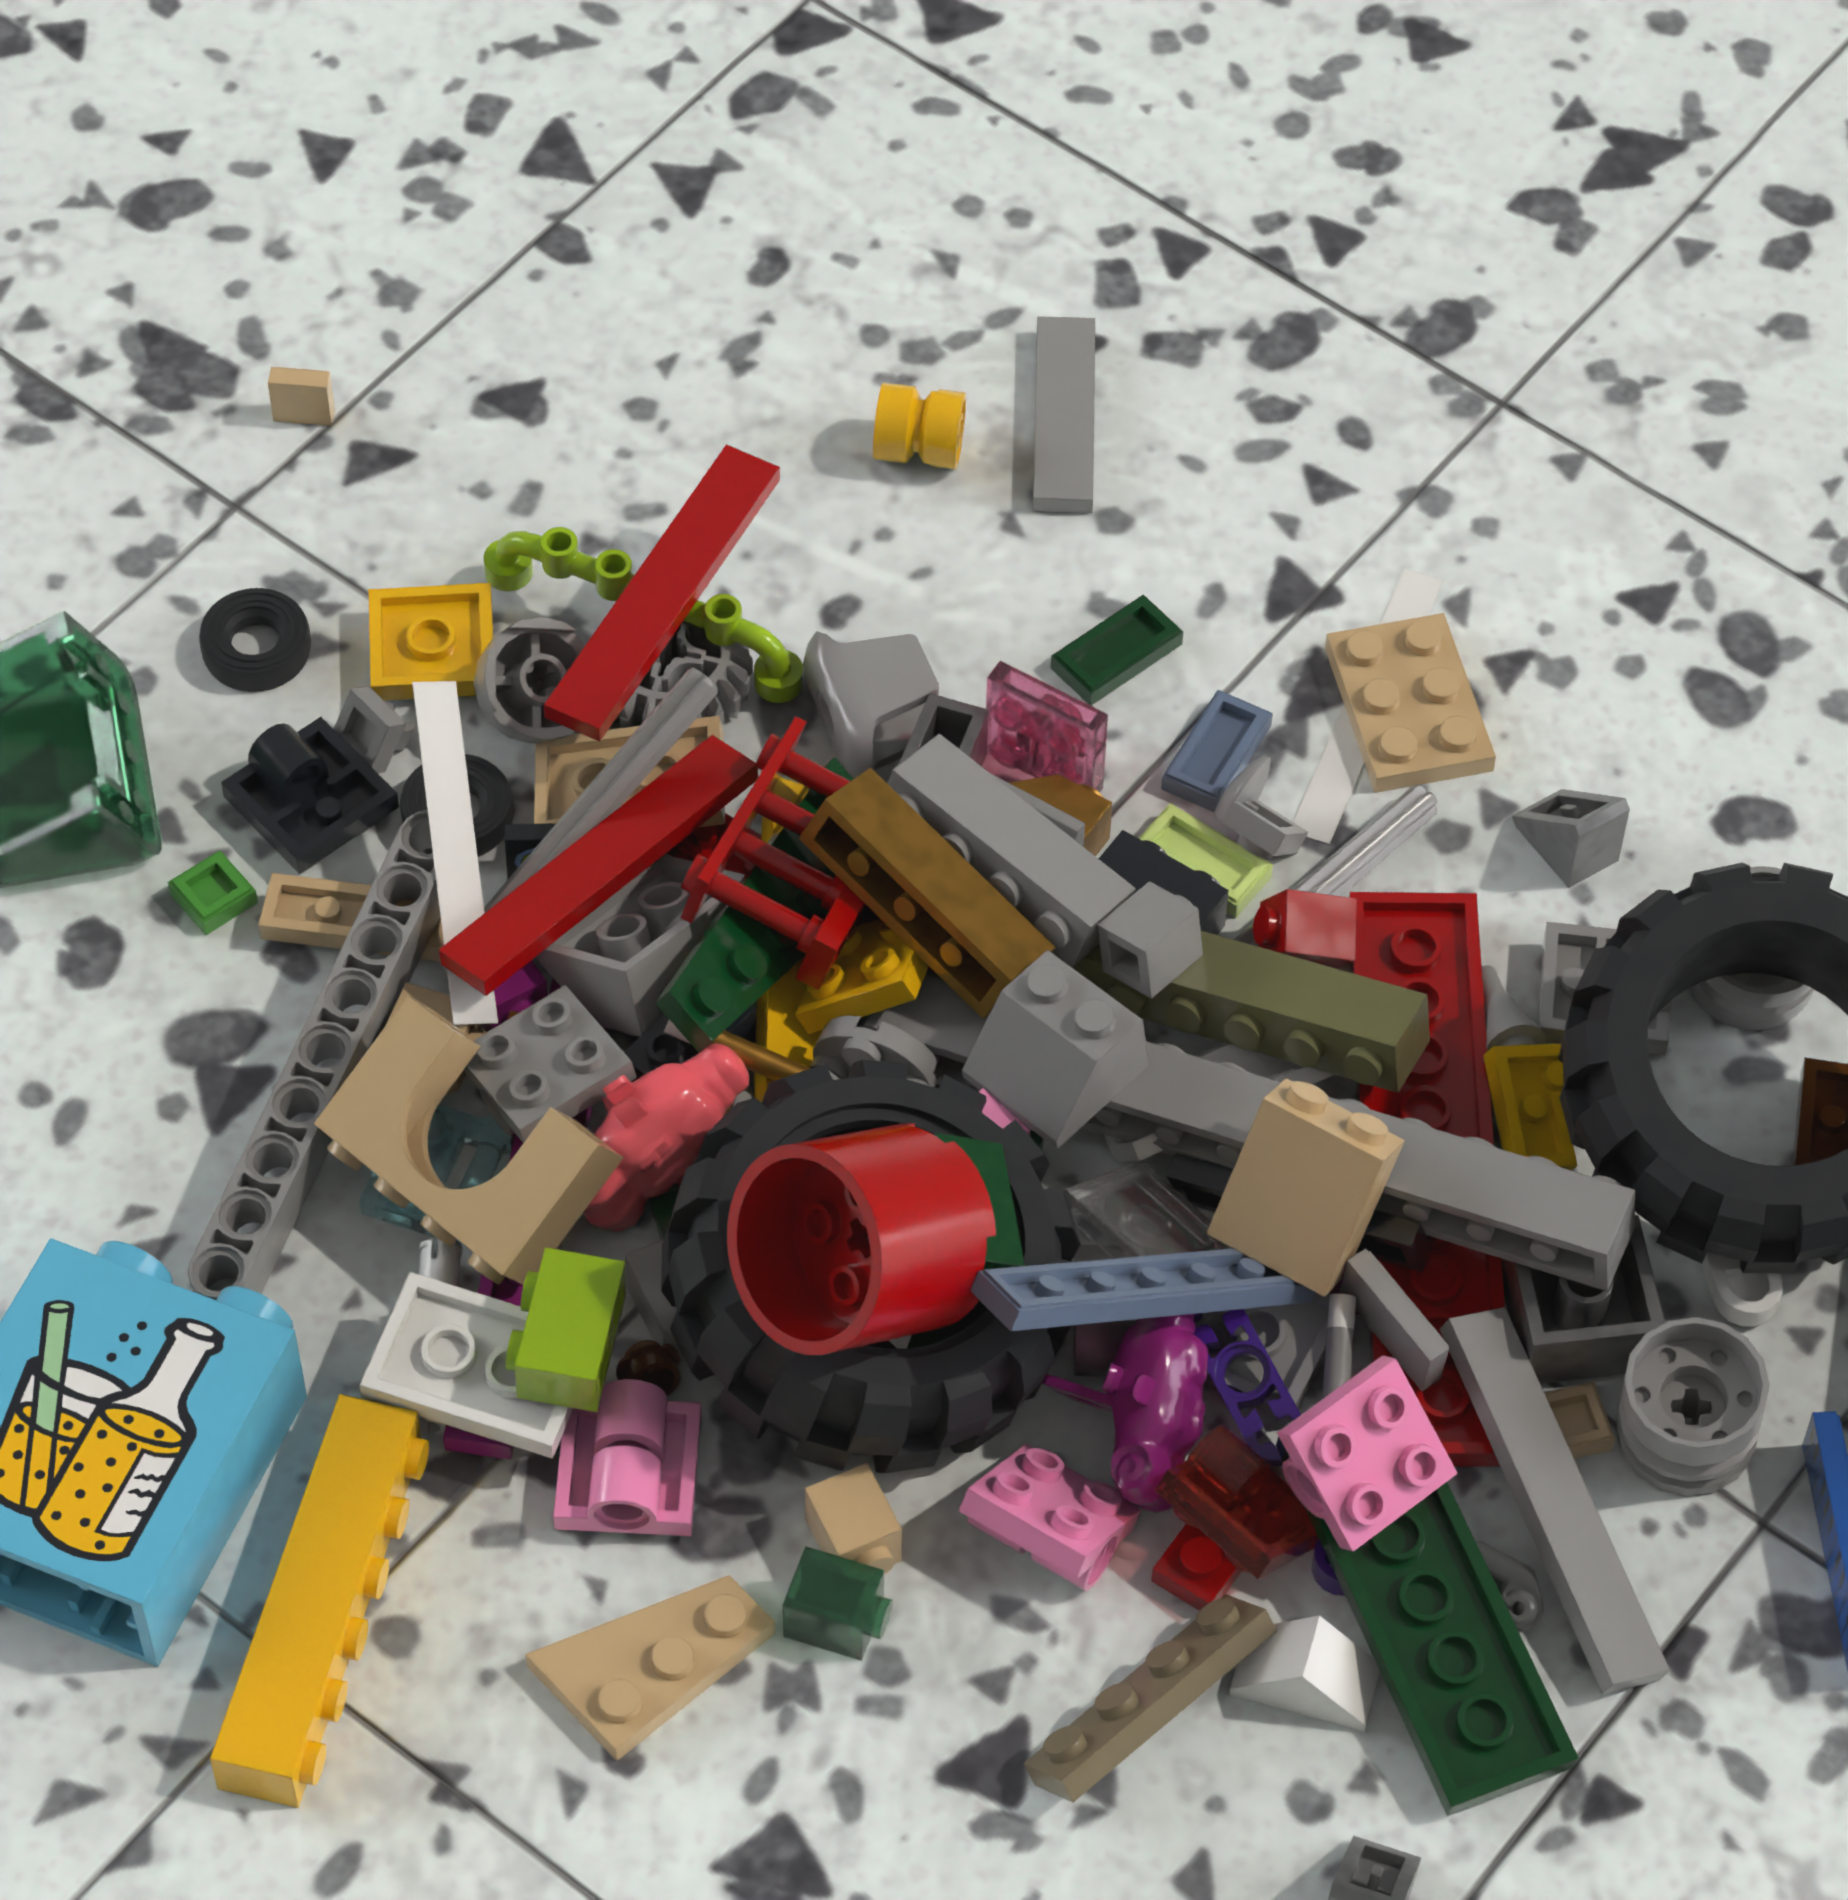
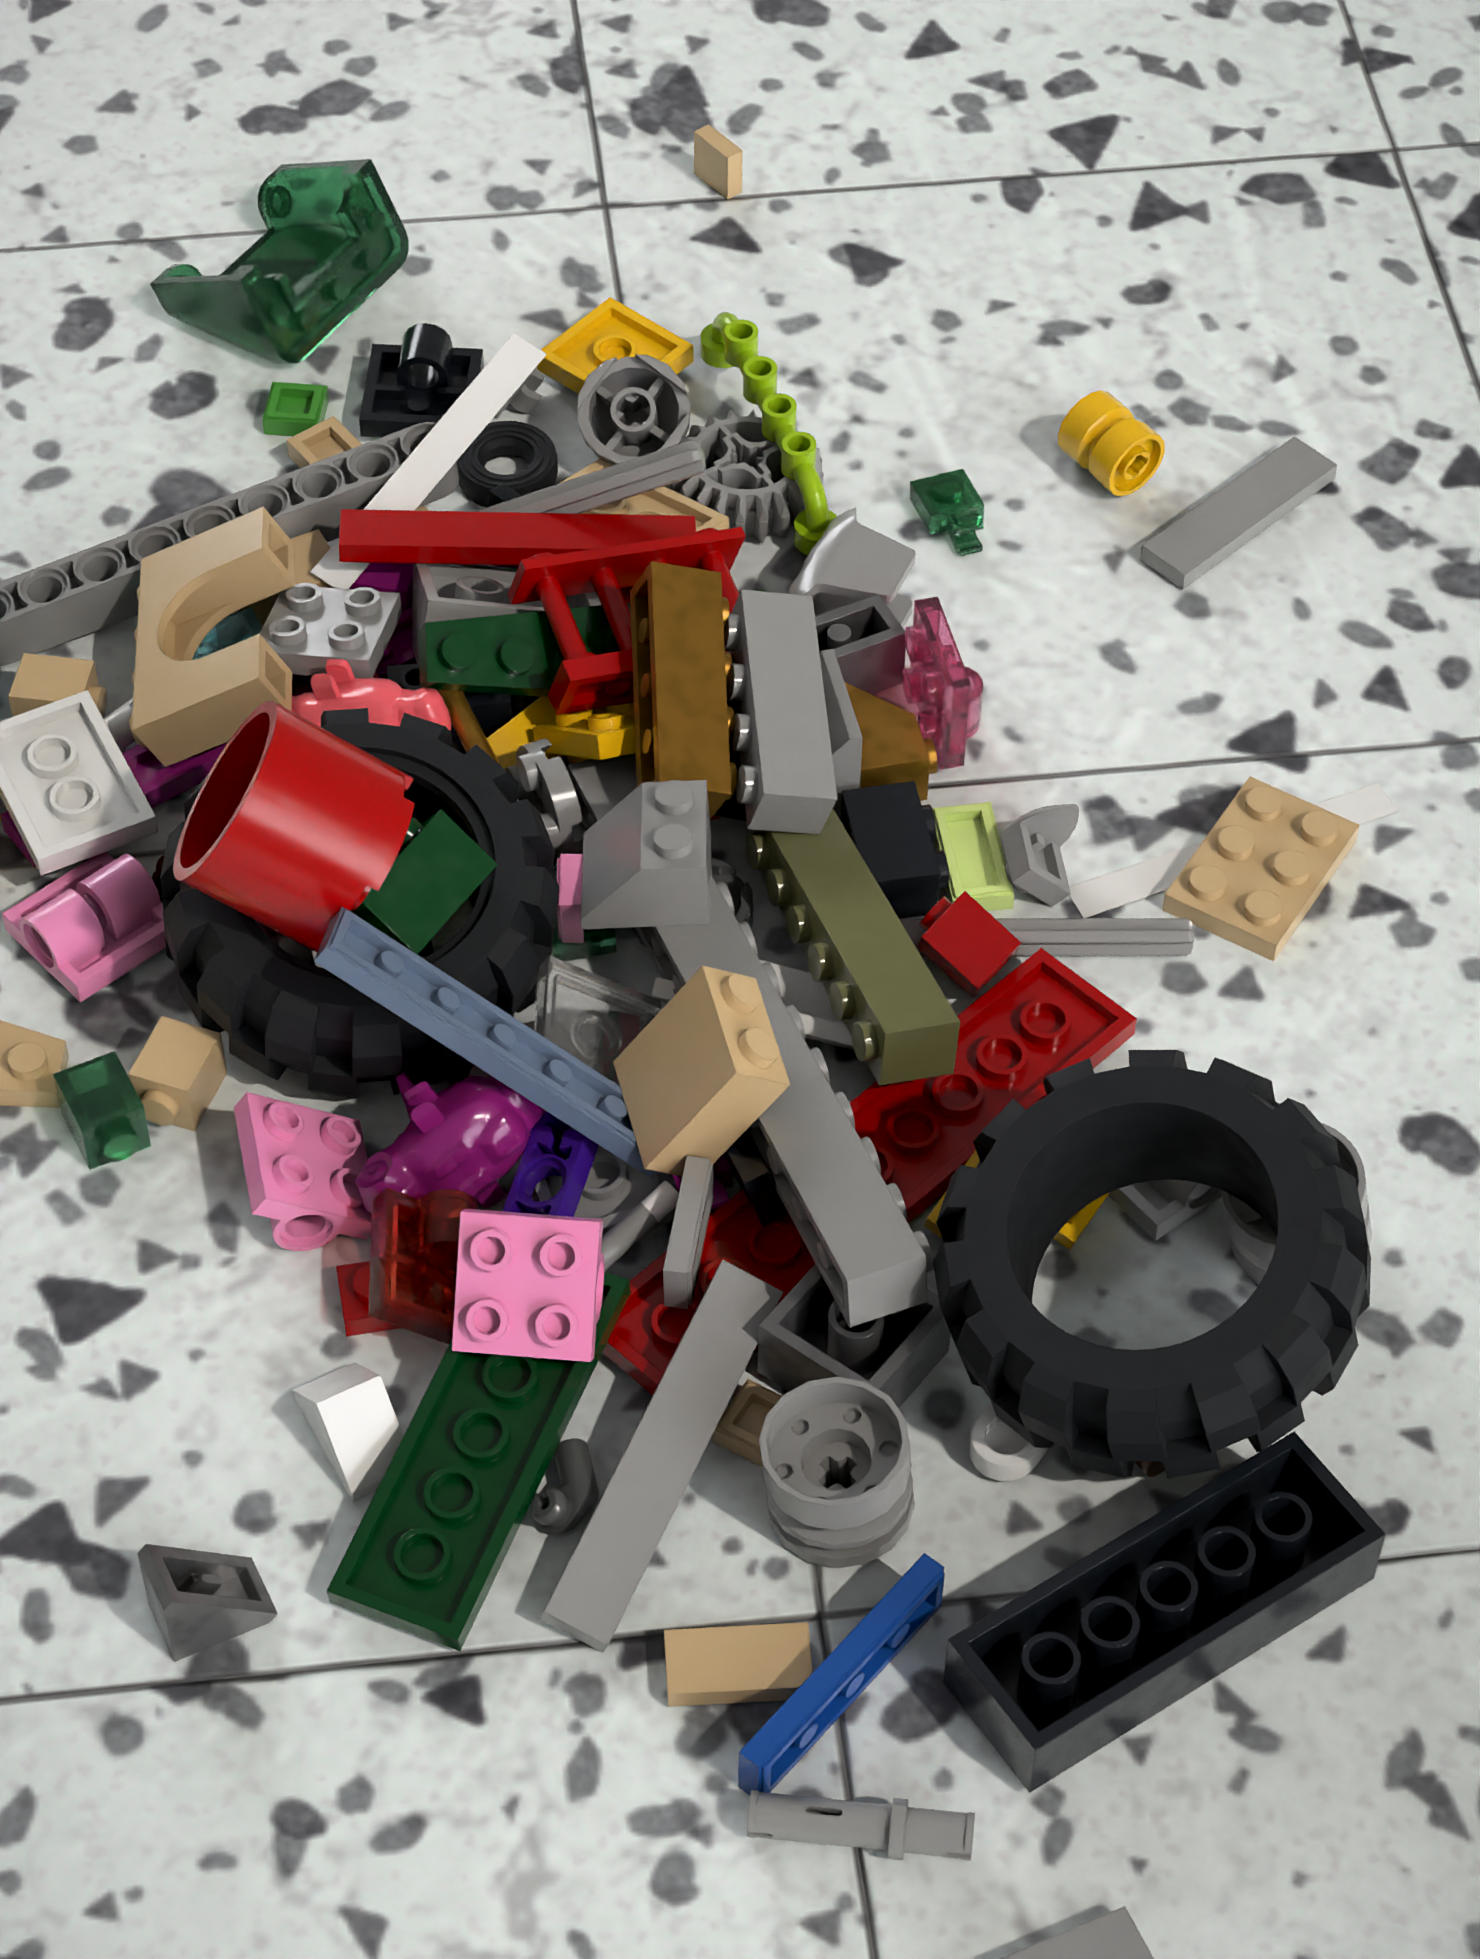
camera: 45 degrees right, 5 degrees down
(261, 670) = (513, 307): black tyre -> none
(352, 1302) = (53, 678): none -> tan brick
(568, 1329) = (121, 790): lime brick -> none
(661, 593) = (766, 401): red tile -> none
(847, 572) = (950, 505): none -> clear green plate
(1116, 650) = (1084, 683): dark green tile -> none
(1149, 1697) = (196, 1339): dark tan plate -> none
(1150, 939) = (814, 843): light grey brick -> none
(1216, 750) = (1098, 788): sand blue tile -> none
(1575, 832) = (1272, 1041): flat silver slope -> none
(1760, 1605) = (736, 1663): none -> tan tile

